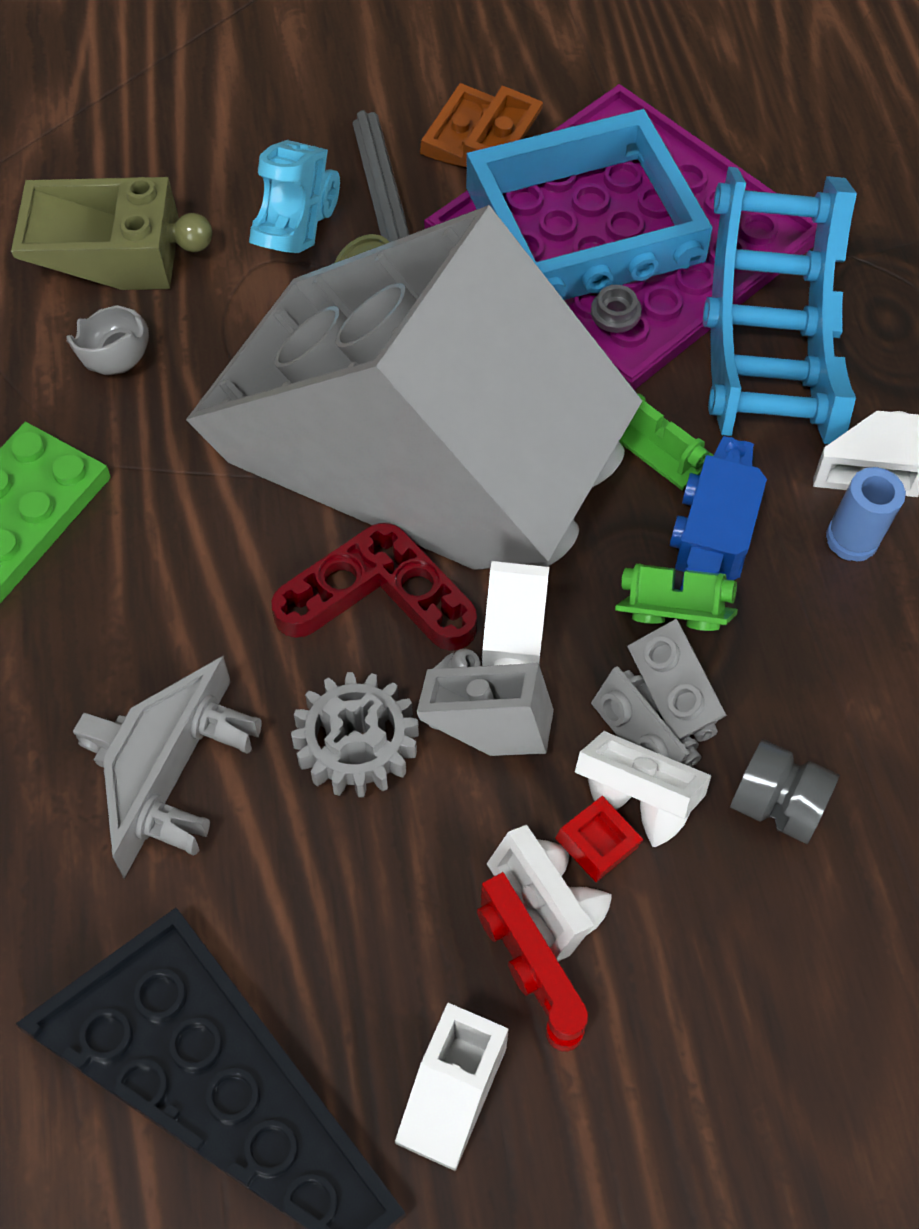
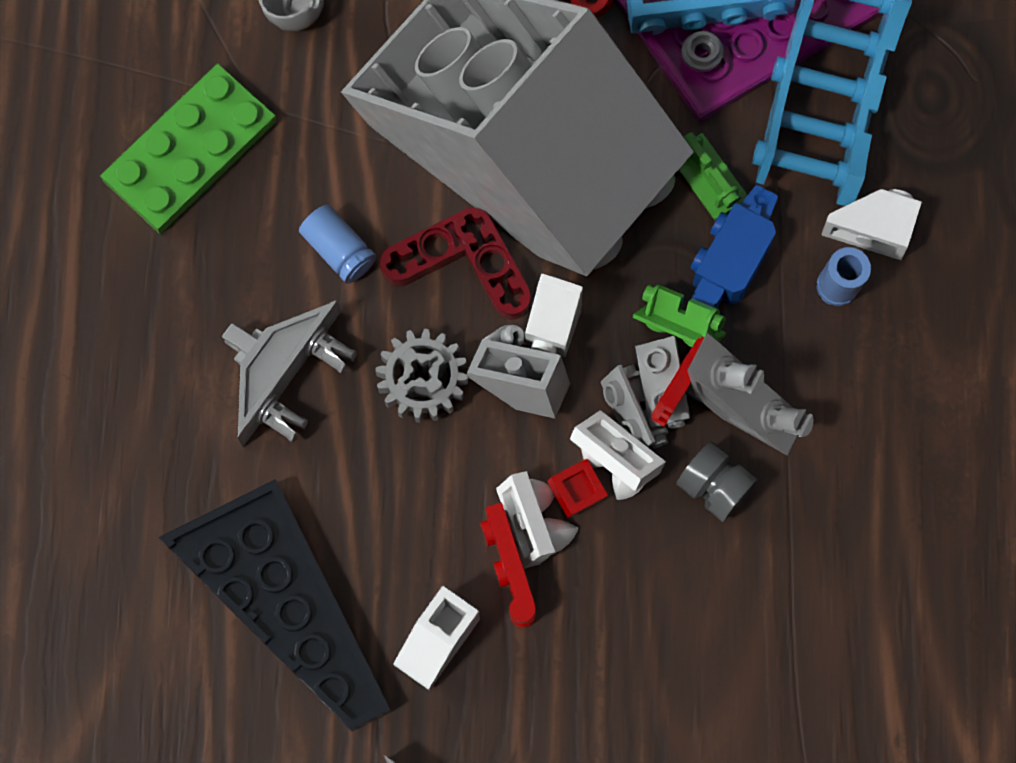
camera: 15 degrees right, 15 degrees up
(212, 594) = (337, 243): none -> medium blue piece
(708, 664) = (675, 389): none -> red tile
(784, 678) = (743, 399): none -> light grey connector

